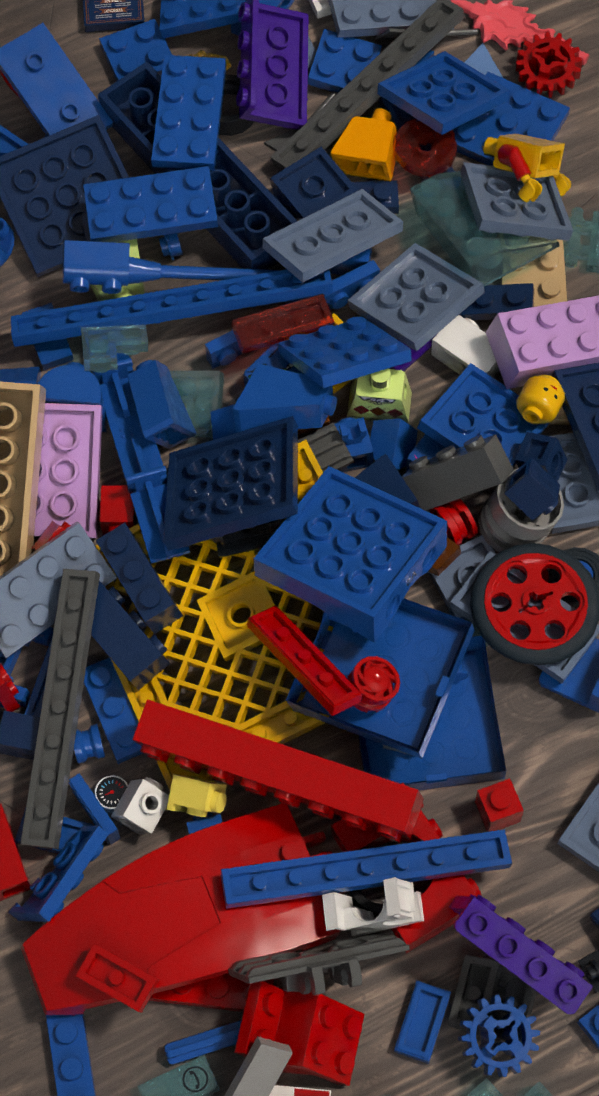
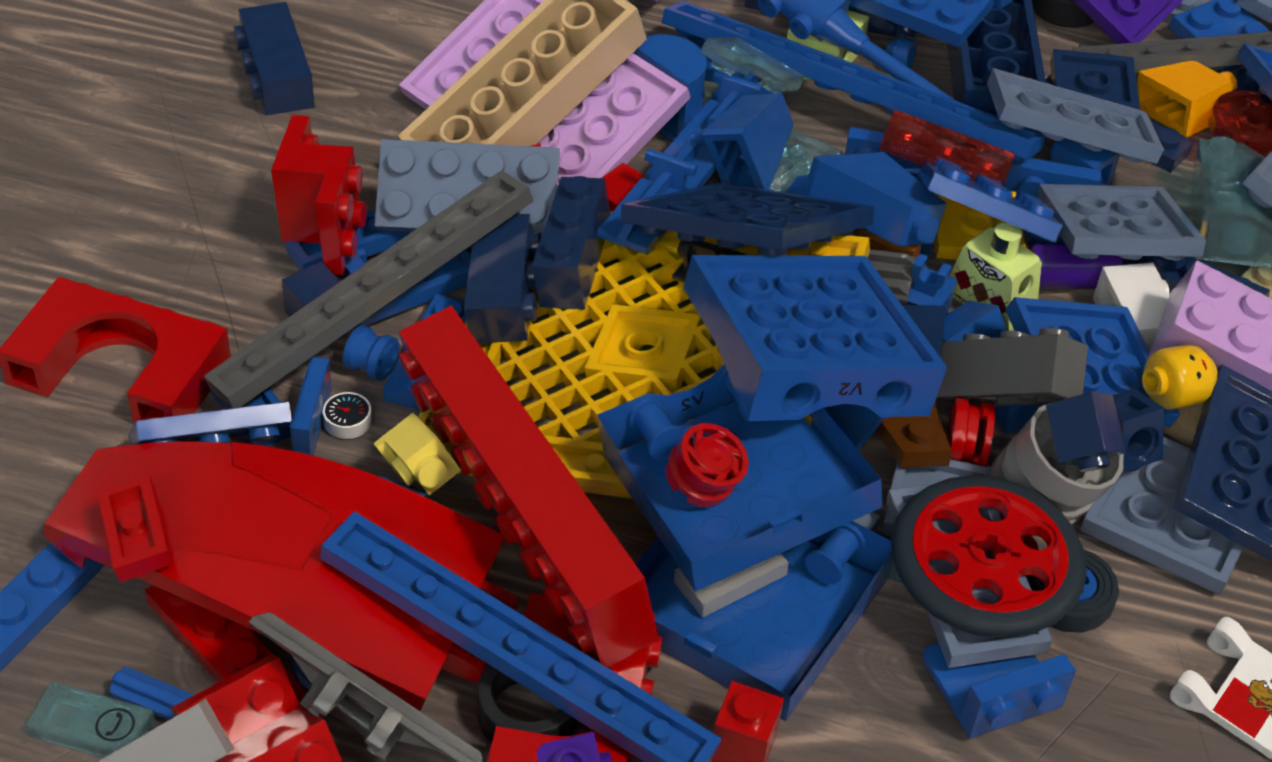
camera: 35 degrees right, 20 degrees down
(141, 805) = (352, 432): white brick -> none
(304, 660) = (654, 391): red tile -> none
(400, 908) = (500, 708): white piece -> none

